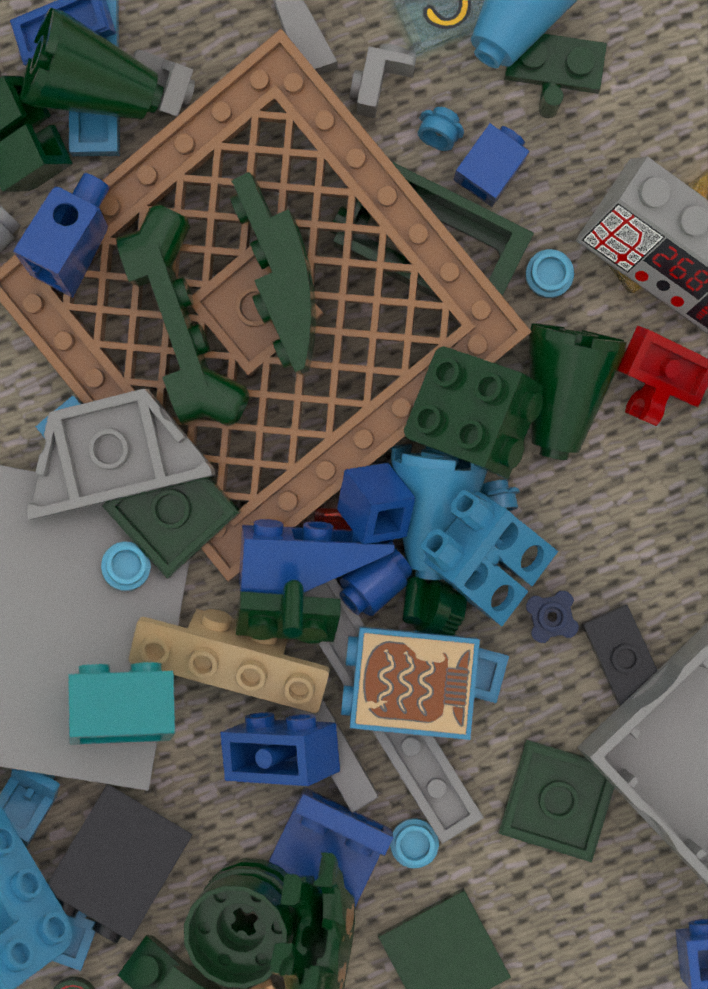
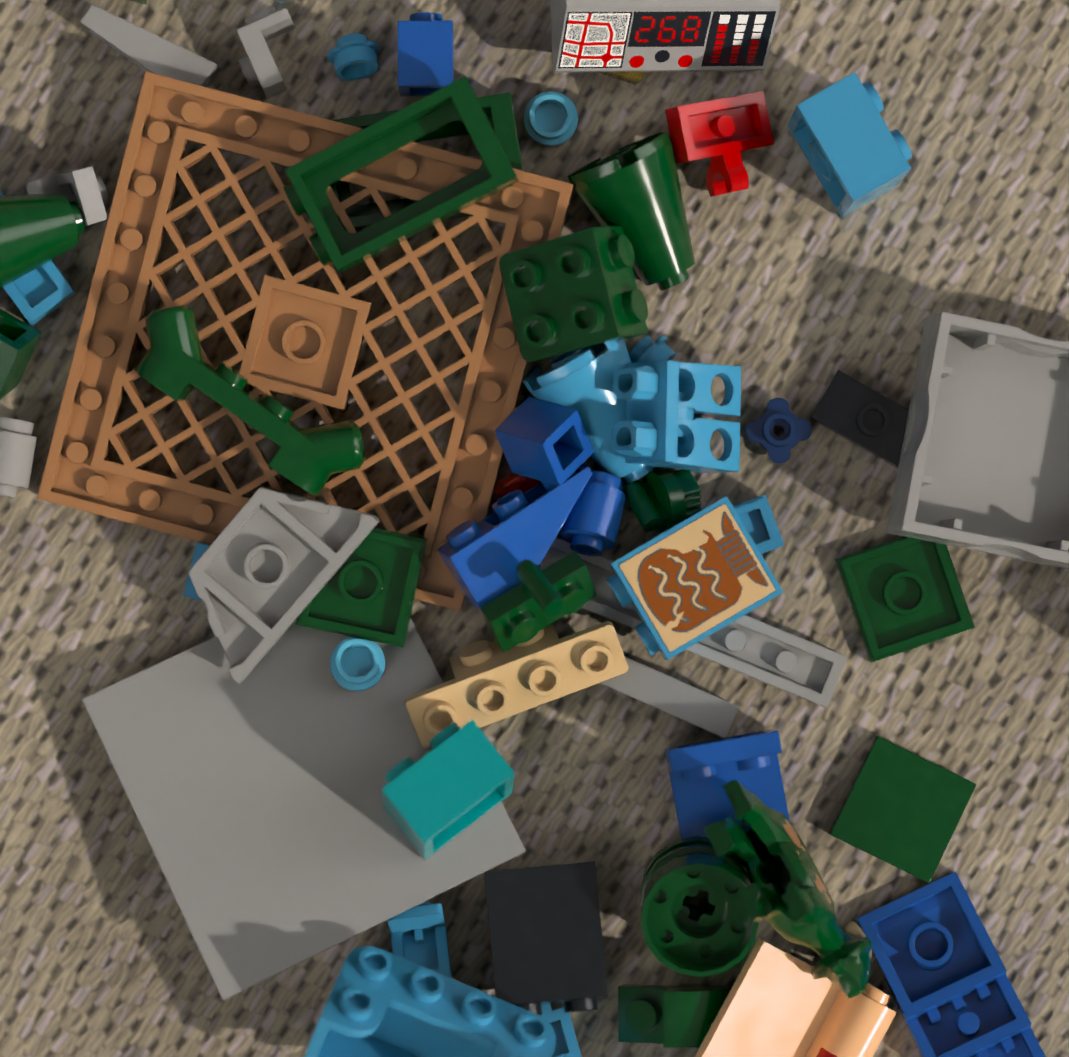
camera: 35 degrees left, 0 degrees up
(65, 235) = (91, 421): blue torso -> none
(280, 751) = (620, 727): blue brick -> none
(287, 291) = (326, 305): dark green slope -> none
(350, 190) = (315, 175): none -> dark green piece
(414, 843) = (802, 726): medium azure plate -> none

